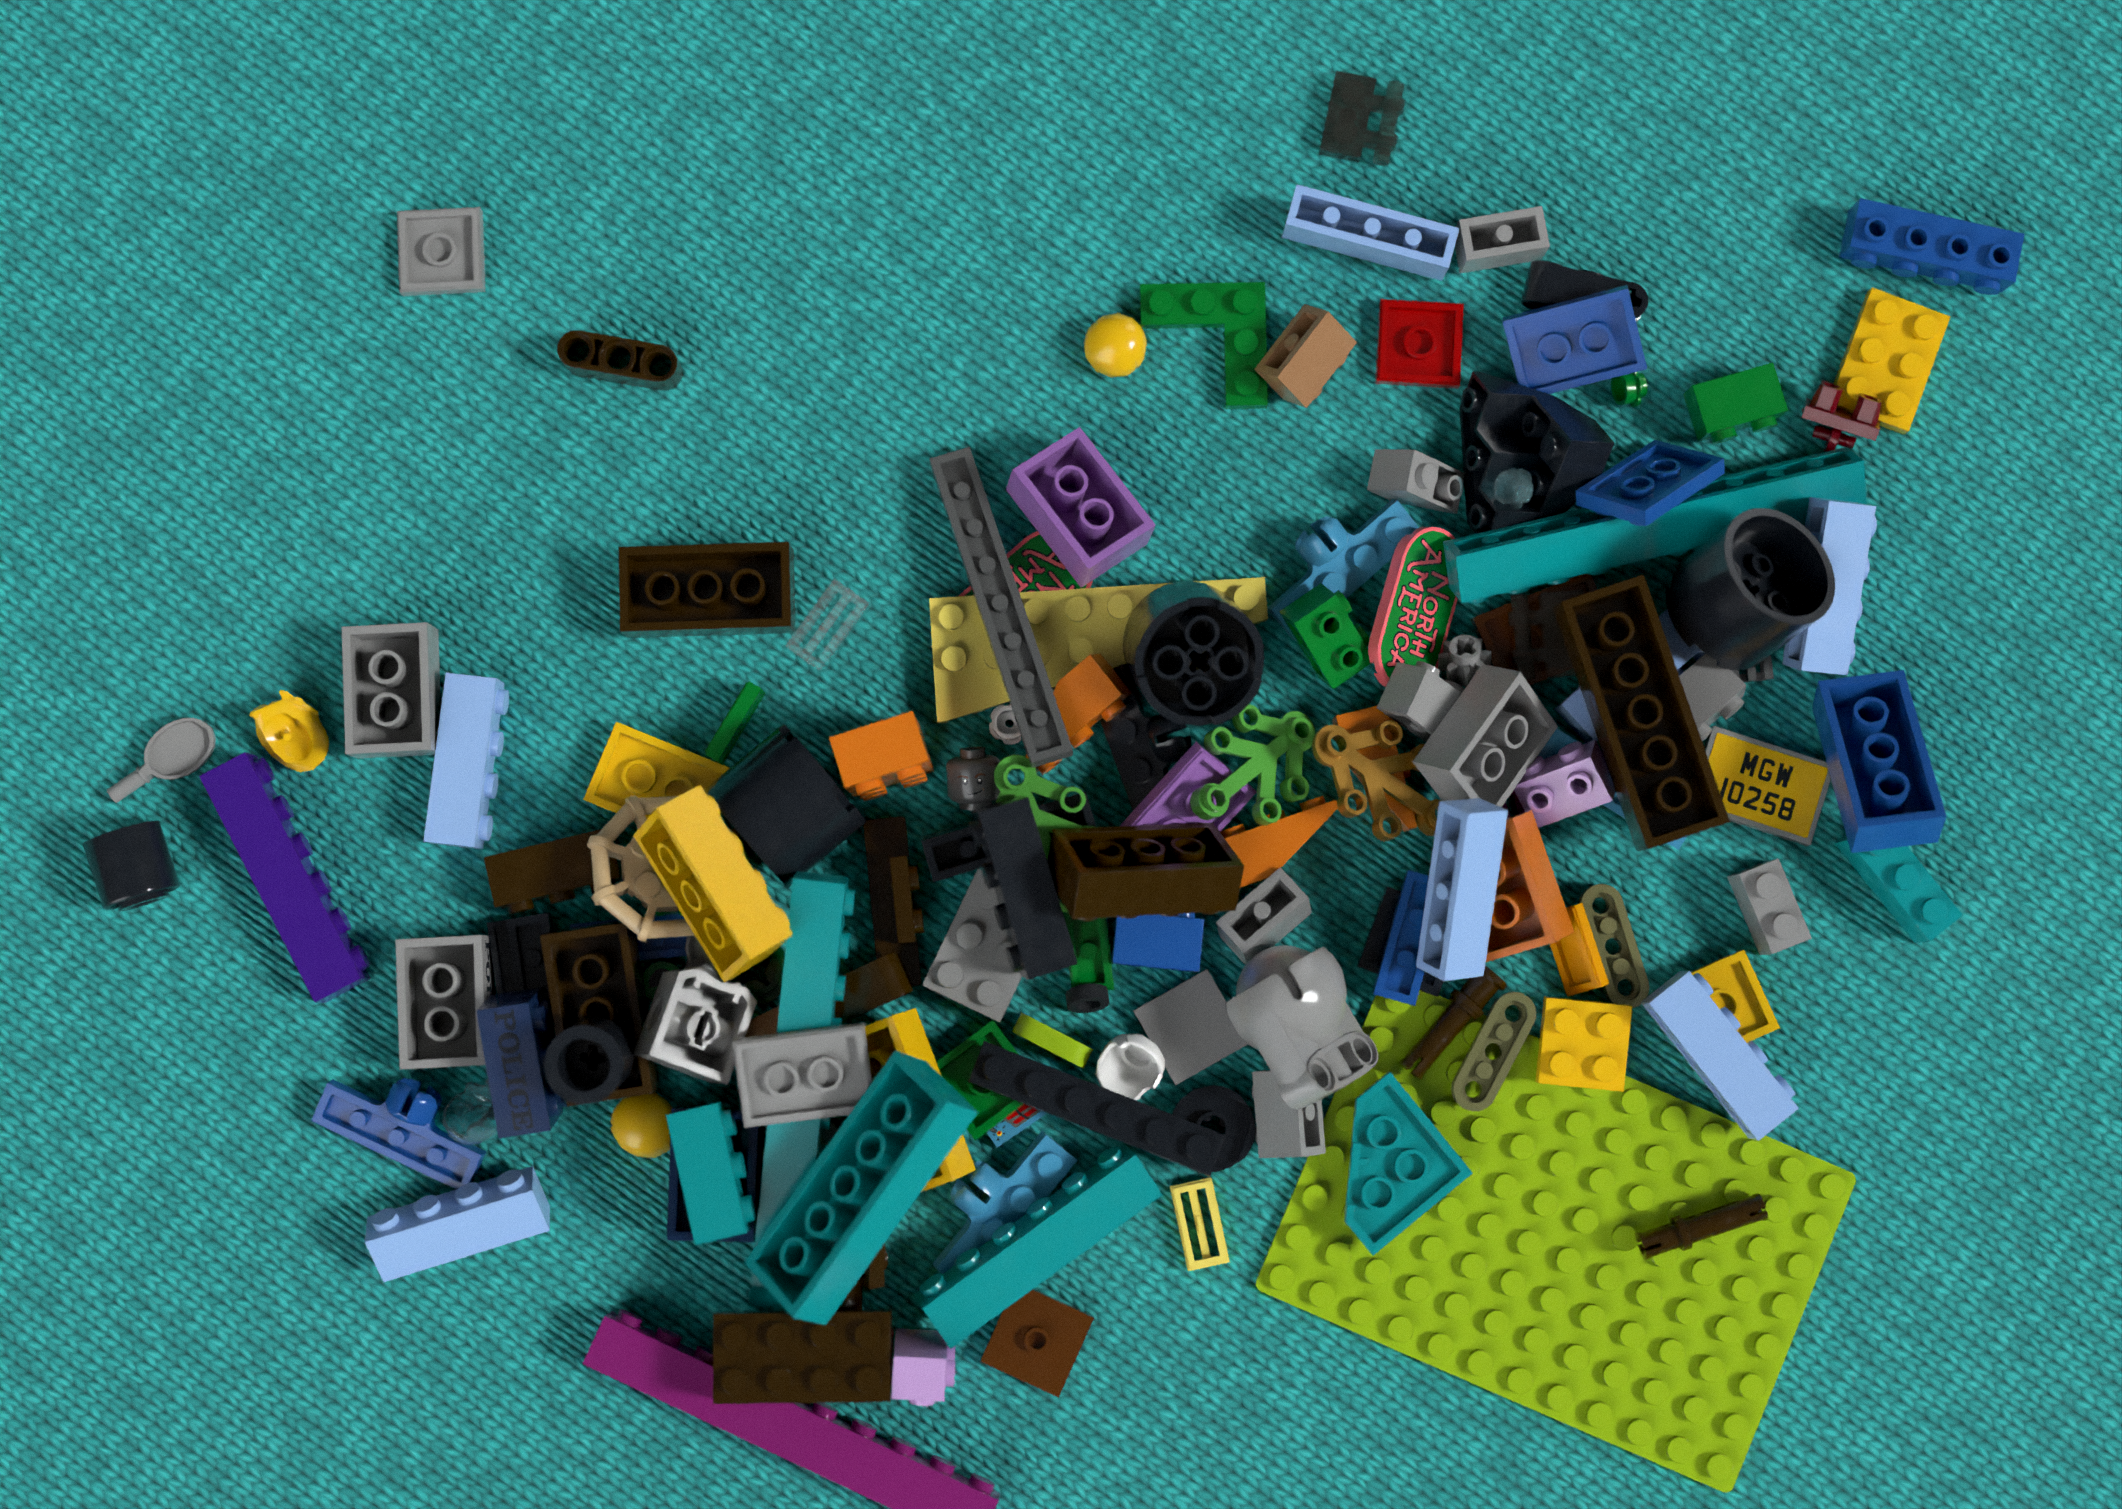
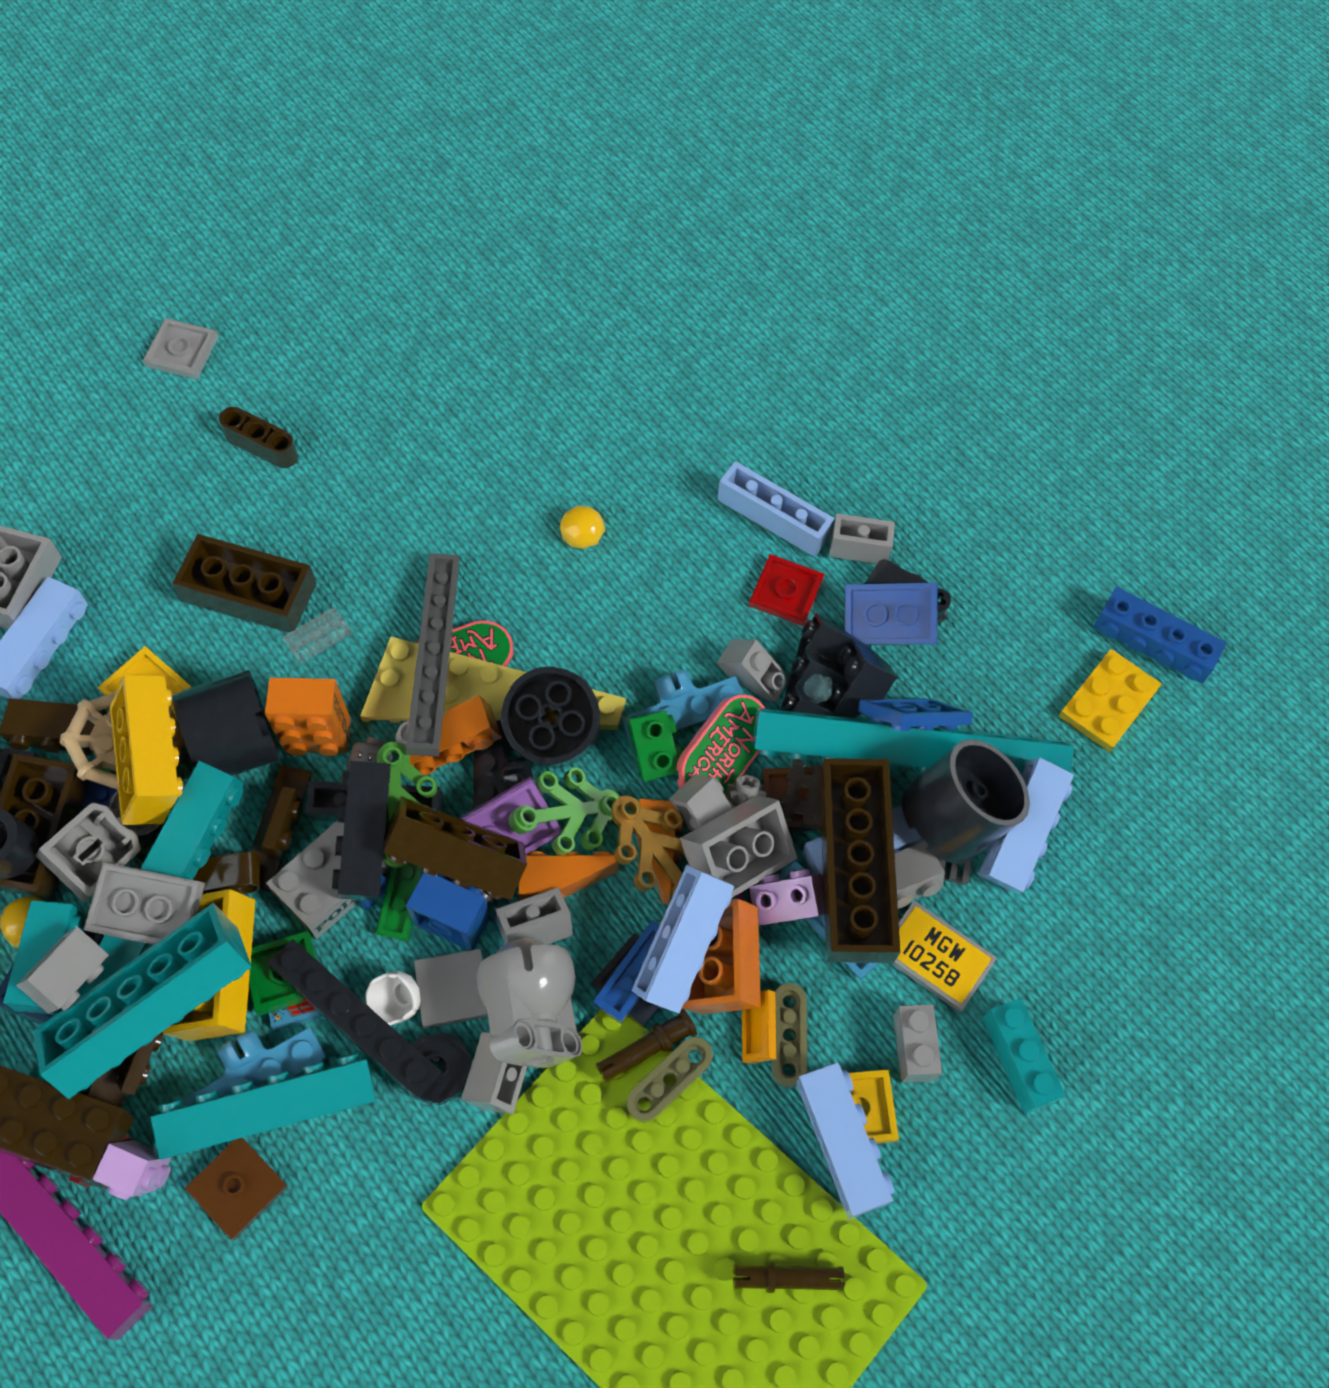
camera: 15 degrees right, 20 degrees down
(735, 722) = (234, 663): green tile -> none
(751, 1187) = (63, 970): none -> light grey brick
(1052, 1040) = (346, 961): lime beam -> none
(1080, 507) = (515, 609): medium lavender brick -> none
(1087, 998) = (387, 932): black piece -> none
(1192, 1187) = (393, 1171): light yellow tile -> none
(1230, 306) = (668, 529): green plate -> none
(1305, 355) = (705, 568): medium nougat brick -> none
(1348, 116) = (787, 444): clear smoke plate -> none
(1395, 1164) = (563, 1142): teal plate -> none
(1583, 1044) = (741, 1098): yellow plate -> none
(1629, 389) = (921, 658): green plate -> none
(1735, 403) = (993, 688): green brick -> none
(1823, 410) = (1055, 711): dark red hips -> none
(1878, 761) = (1029, 957): blue brick -> none

